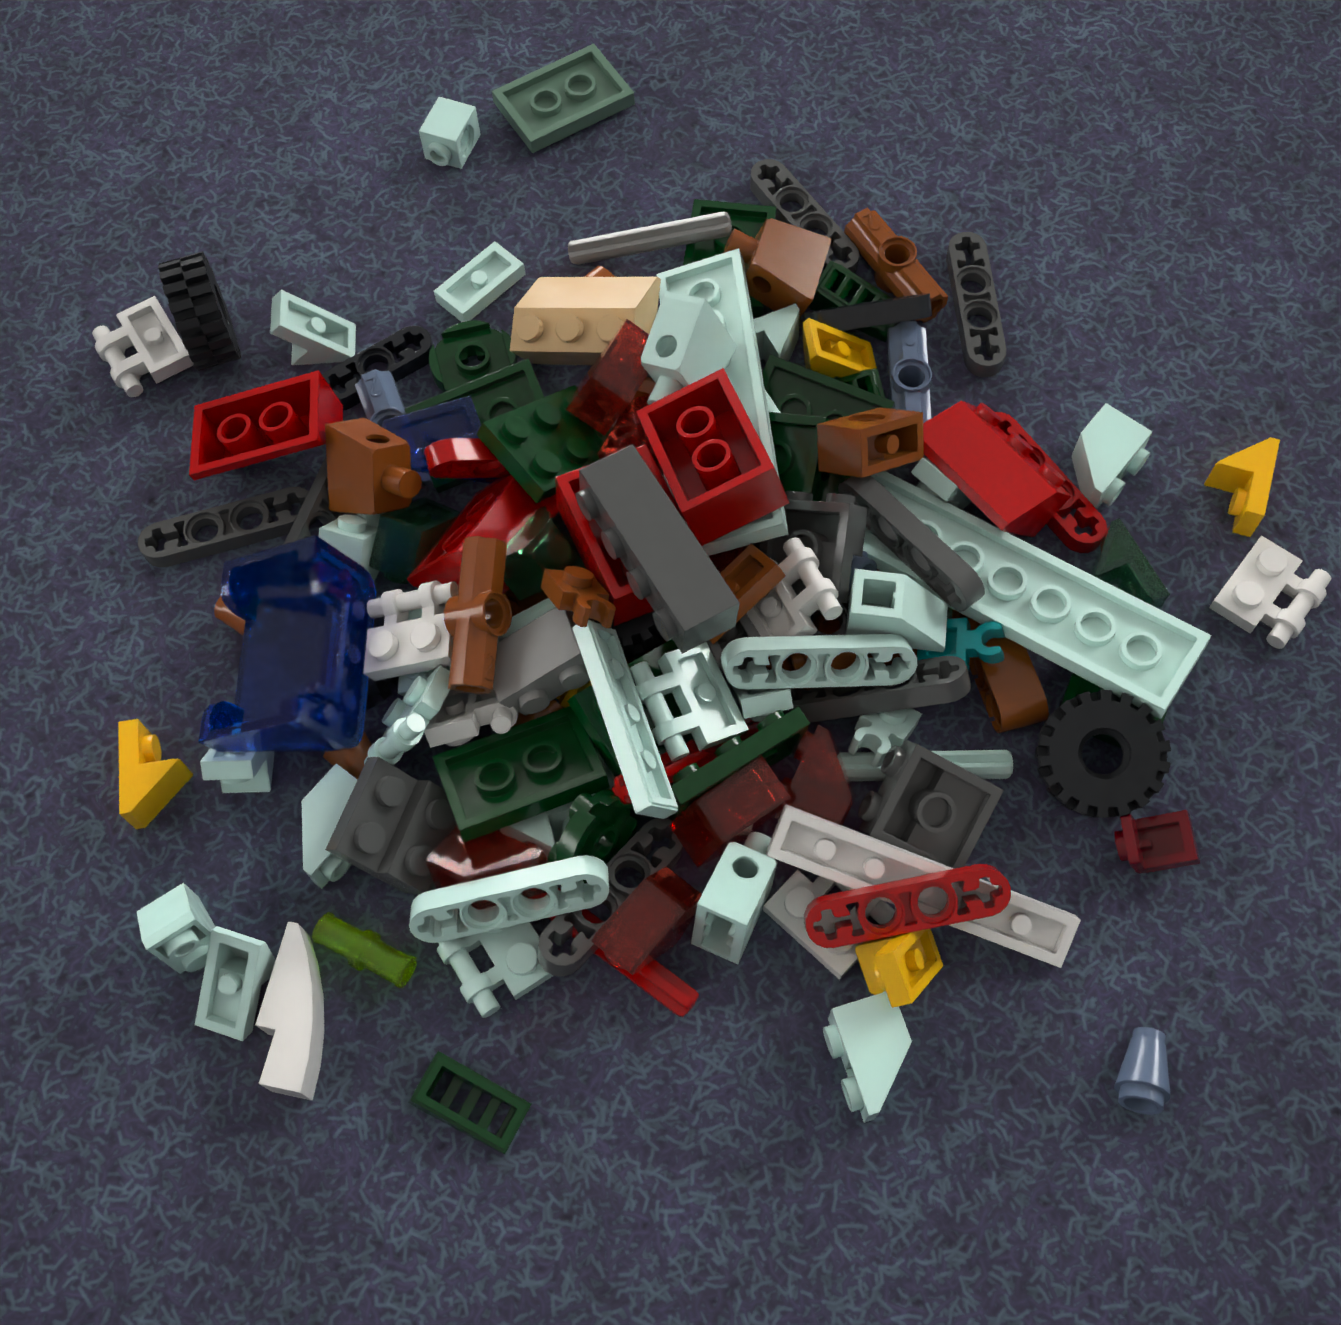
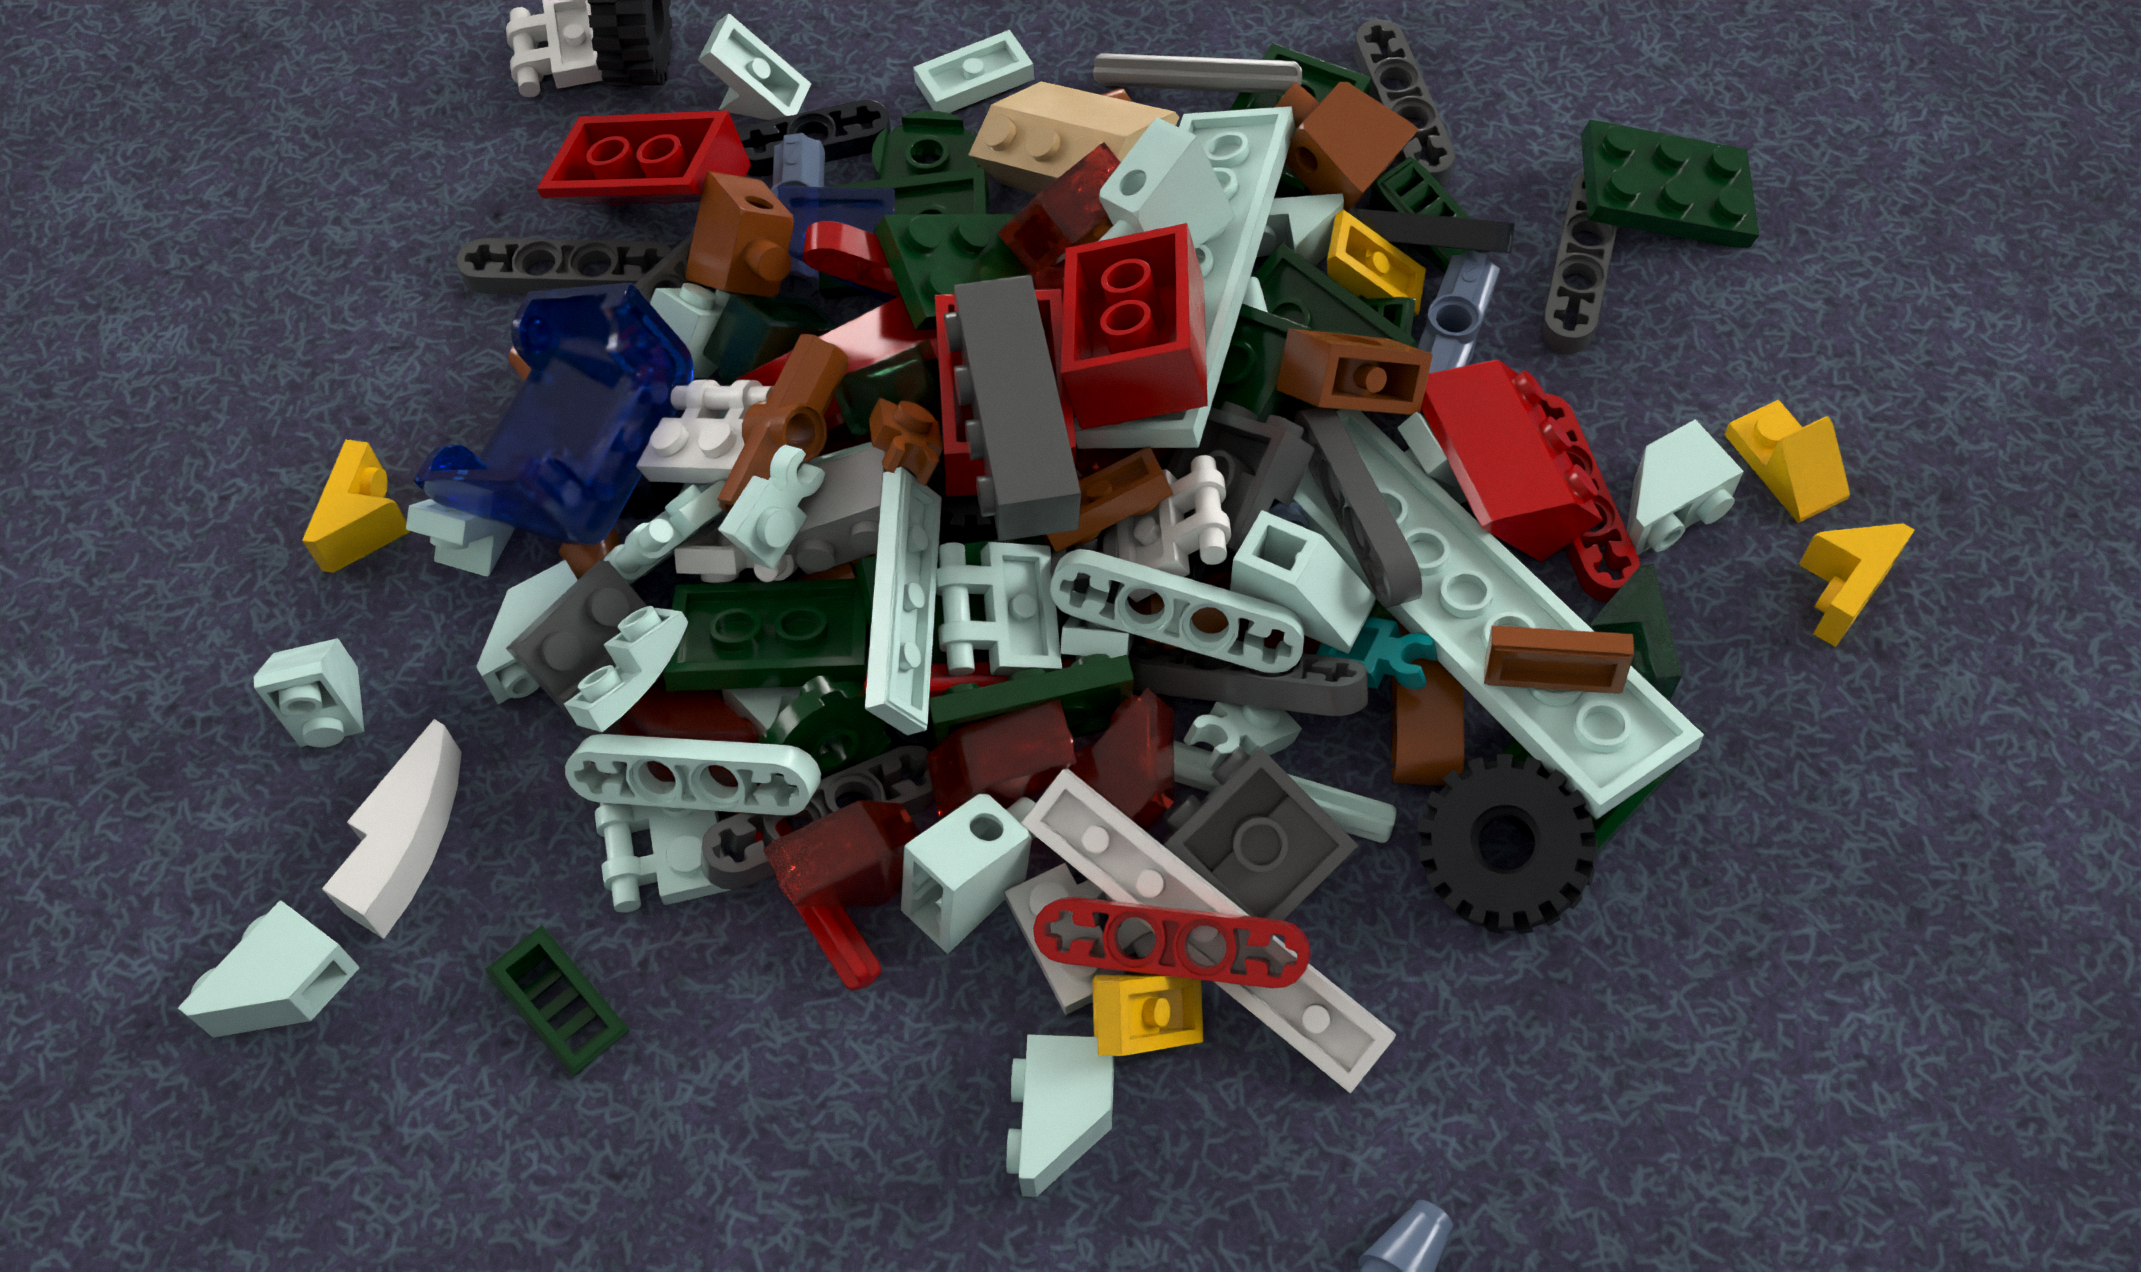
camera: 20 degrees right, 5 degrees down
(233, 983) = (345, 768): light aqua slope -> none
(245, 1162) = (271, 978): none -> light aqua slope
(364, 949) = (512, 786): clear neon green pin -> none
(436, 822) = (641, 654): none -> light aqua slope
(494, 683) = (768, 510): none -> light aqua plate
(893, 260) = (1495, 180): dark orange piece -> none
(1014, 231) = (1668, 185): none -> dark green plate
(1098, 614) = (1558, 659): none -> dark orange tile
(1157, 842) = (1541, 979): dark red bracket -> none
(1176, 414) = (1793, 461): none -> yellow slope
(1257, 583) = (1820, 705): white plate -> none

